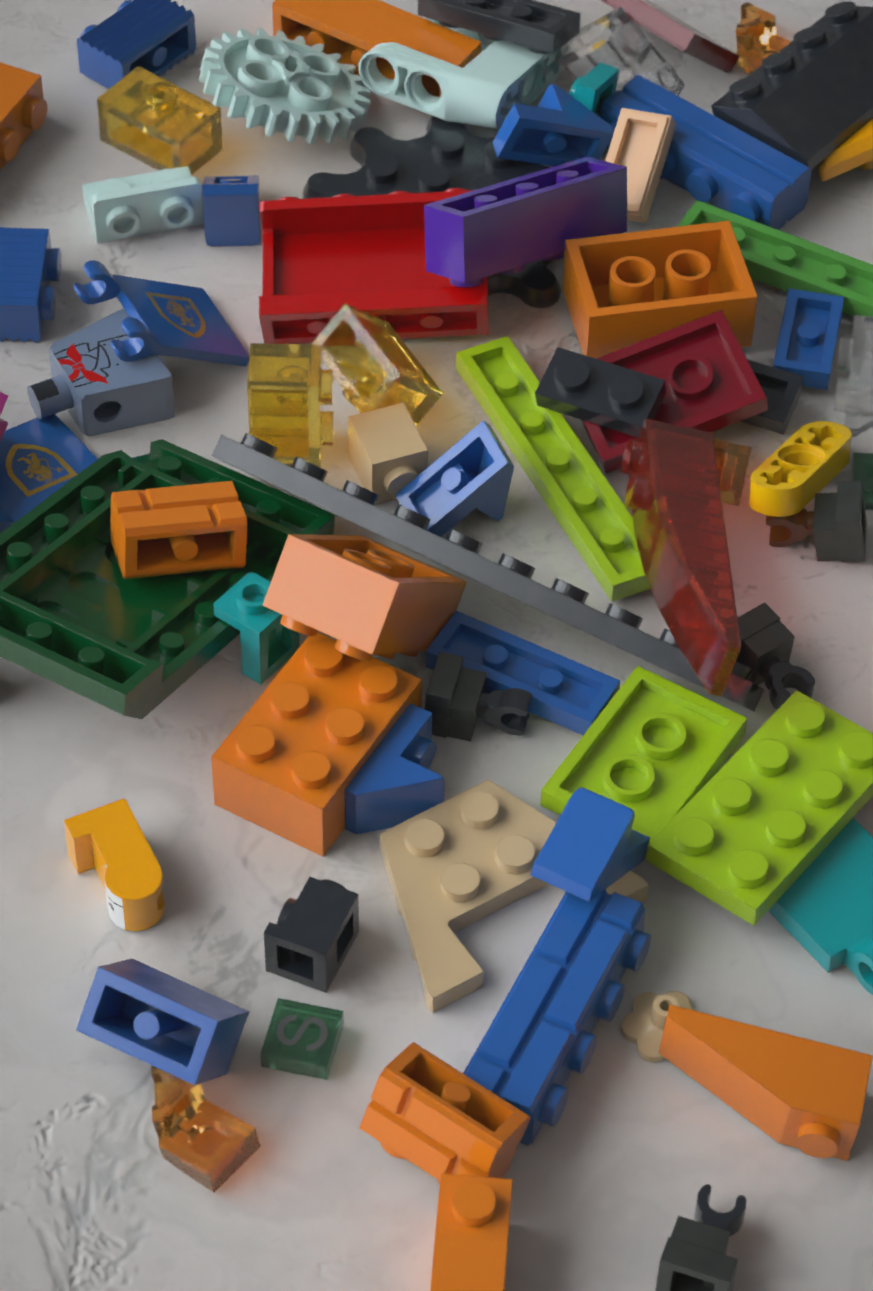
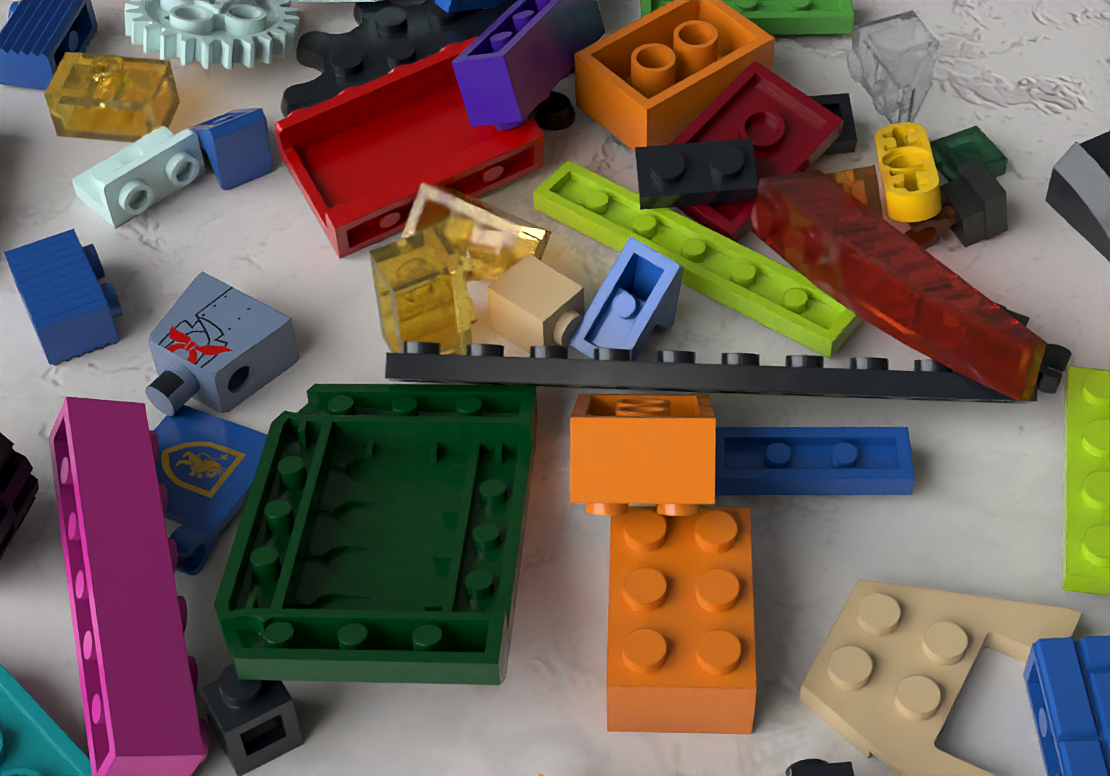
camera: 25 degrees left, 0 degrees up
(163, 318) = (244, 265): blue flag -> none
(178, 529) = (407, 464): orange brick -> none
(262, 637) = (543, 514): teal bracket -> none
(396, 777) = (784, 624): blue slope -> none
(459, 698) = (782, 514): pearl dark grey piece -> none
(590, 846) = (1036, 602): blue slope -> none
(648, 751) = (983, 497): lime plate -> none
(809, 336) = (816, 60): blue plate -> none

